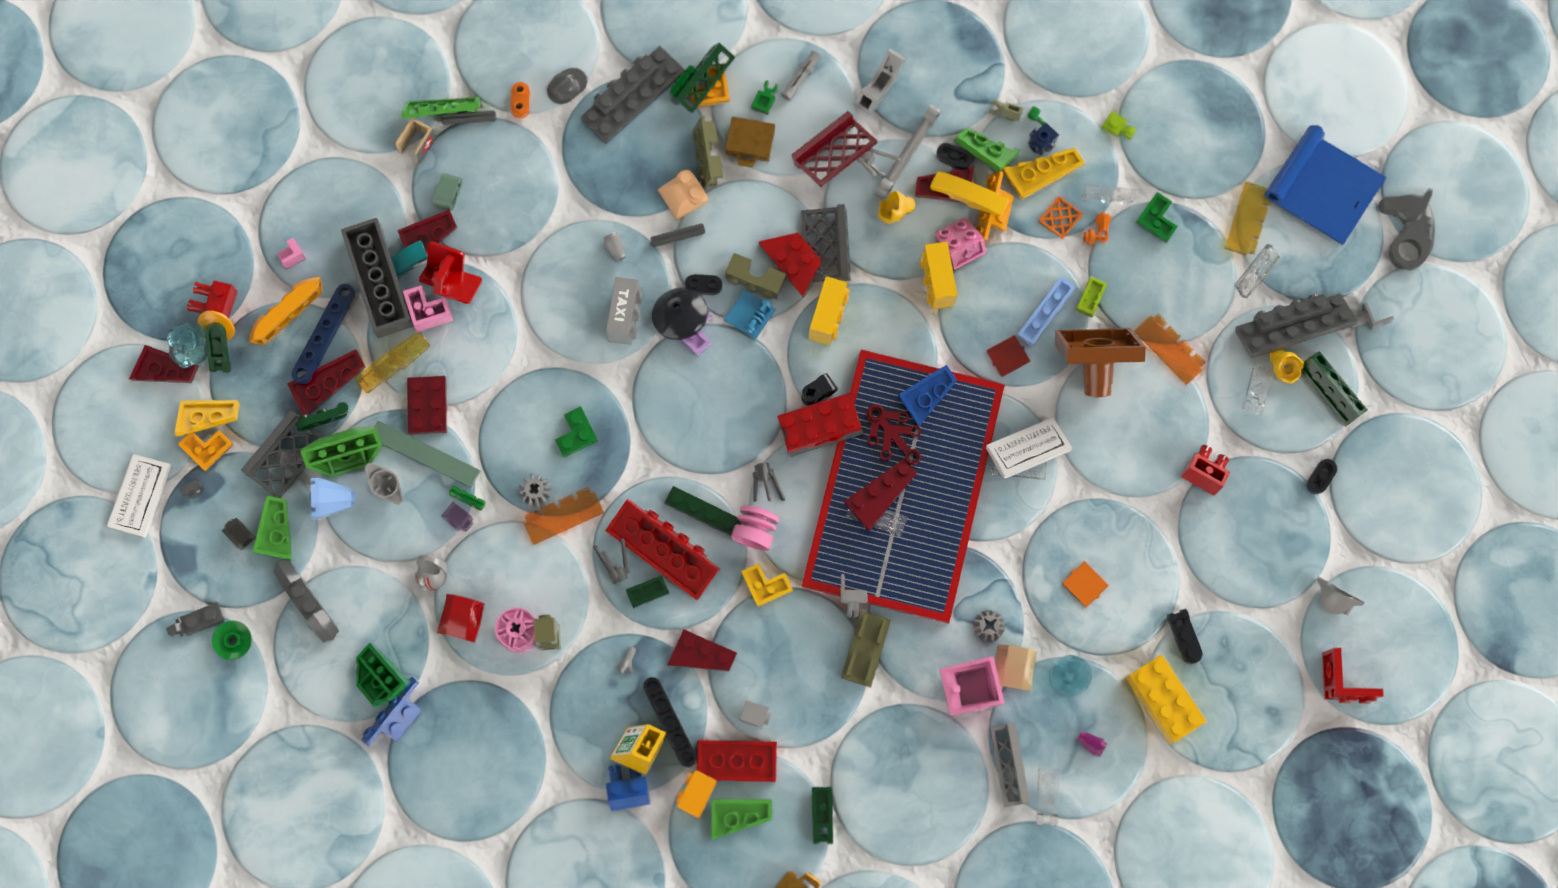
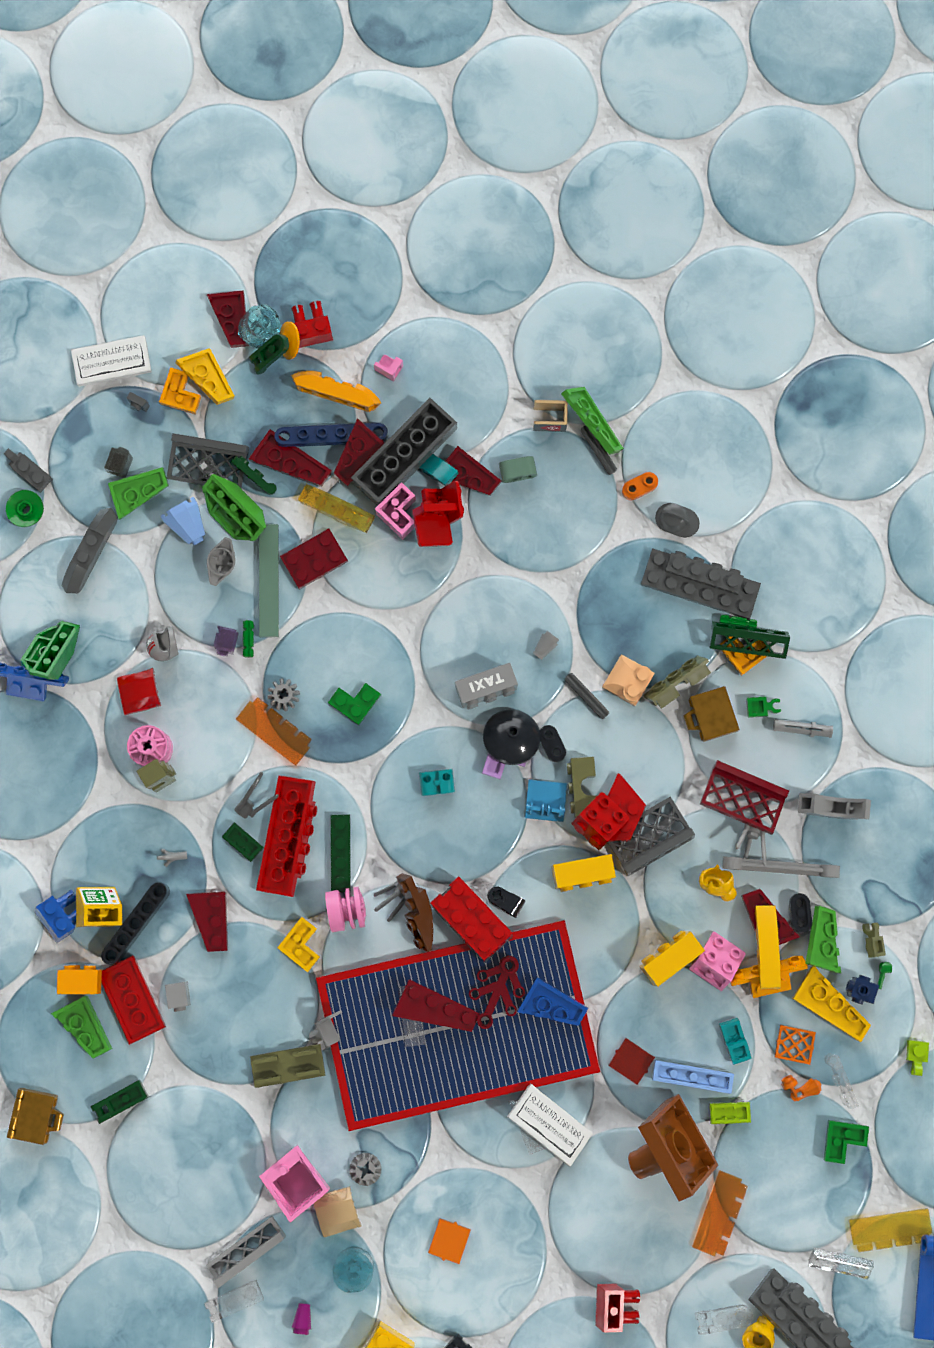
camera: 65 degrees right, 5 degrees up
(353, 317) = (358, 450): none -> dark red wing
(684, 397) = (437, 782): none -> teal piece
(792, 275) = (600, 821): none -> red bracket
(794, 466) = (420, 915): none -> reddish brown slope
(1034, 263) = (735, 1041): none -> teal slope

